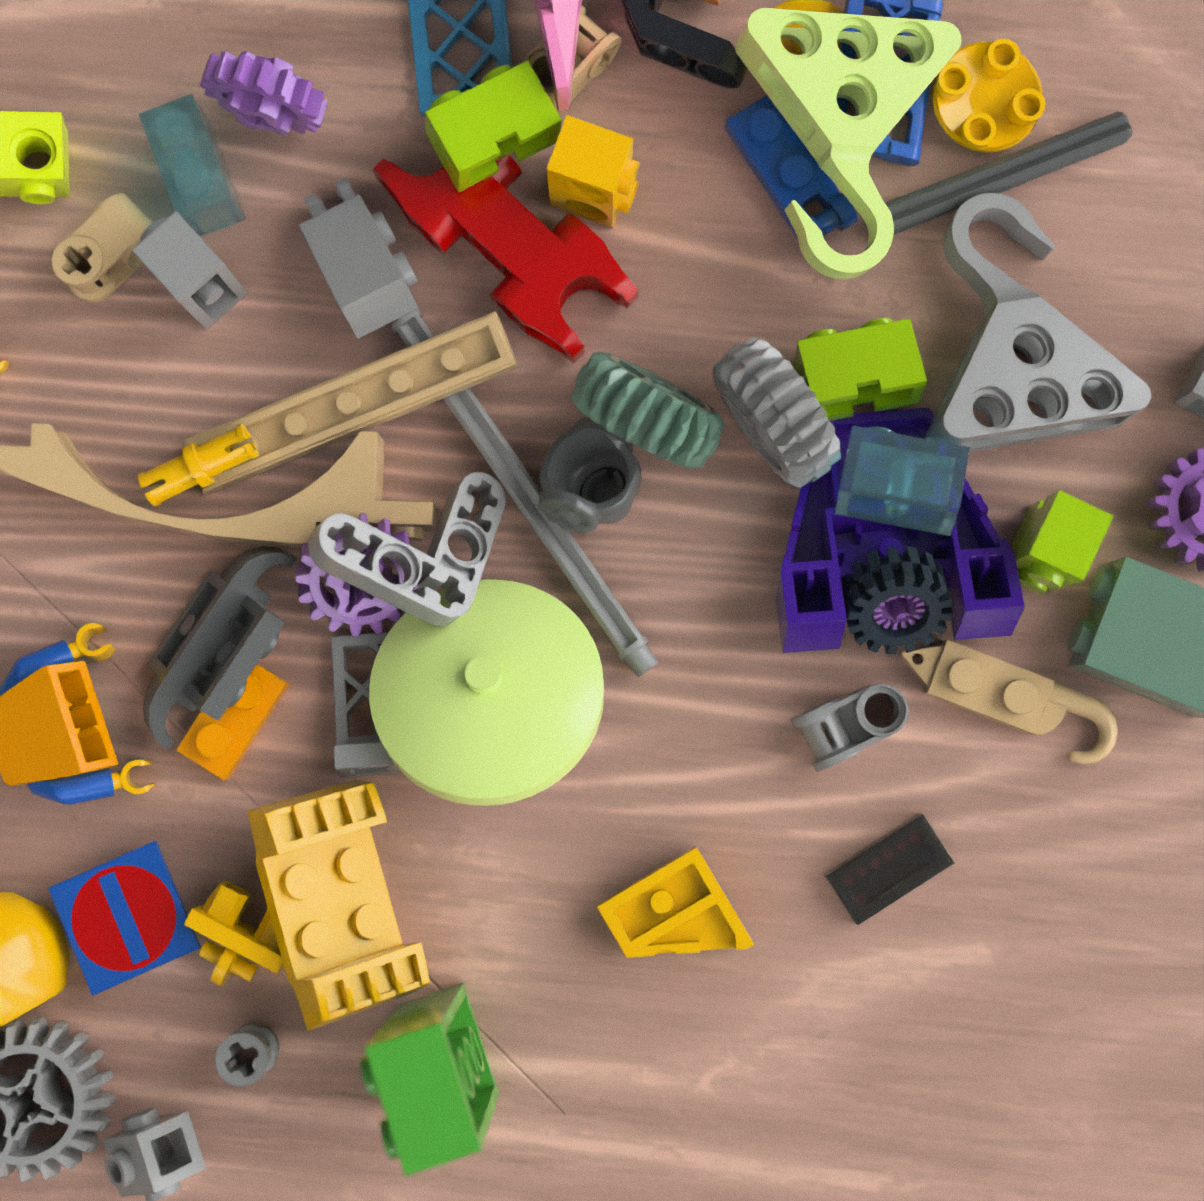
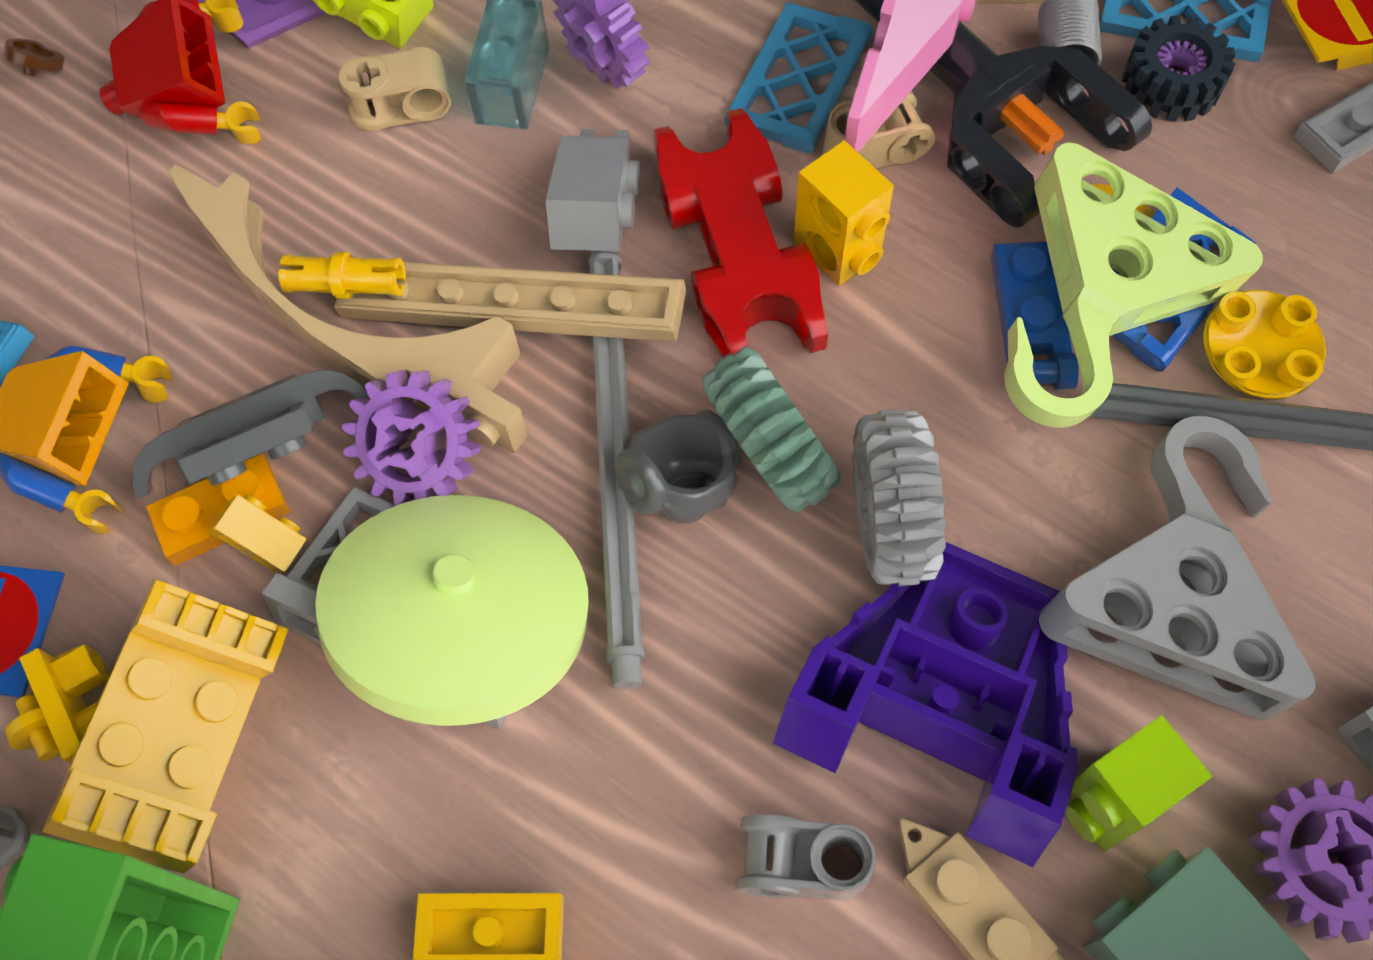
camera: 30 degrees right, 20 degrees down
(189, 269) = (446, 124): light grey brick -> none
(289, 721) = (258, 534): none -> yellow piece
(436, 567) = (479, 464): light grey beam -> none
(490, 122) = (772, 128): lime brick -> none
(862, 366) = (1009, 512): lime brick -> none
(902, 480) = (991, 627): clear light blue brick -> none
(906, 619) = (922, 780): black bush -> none

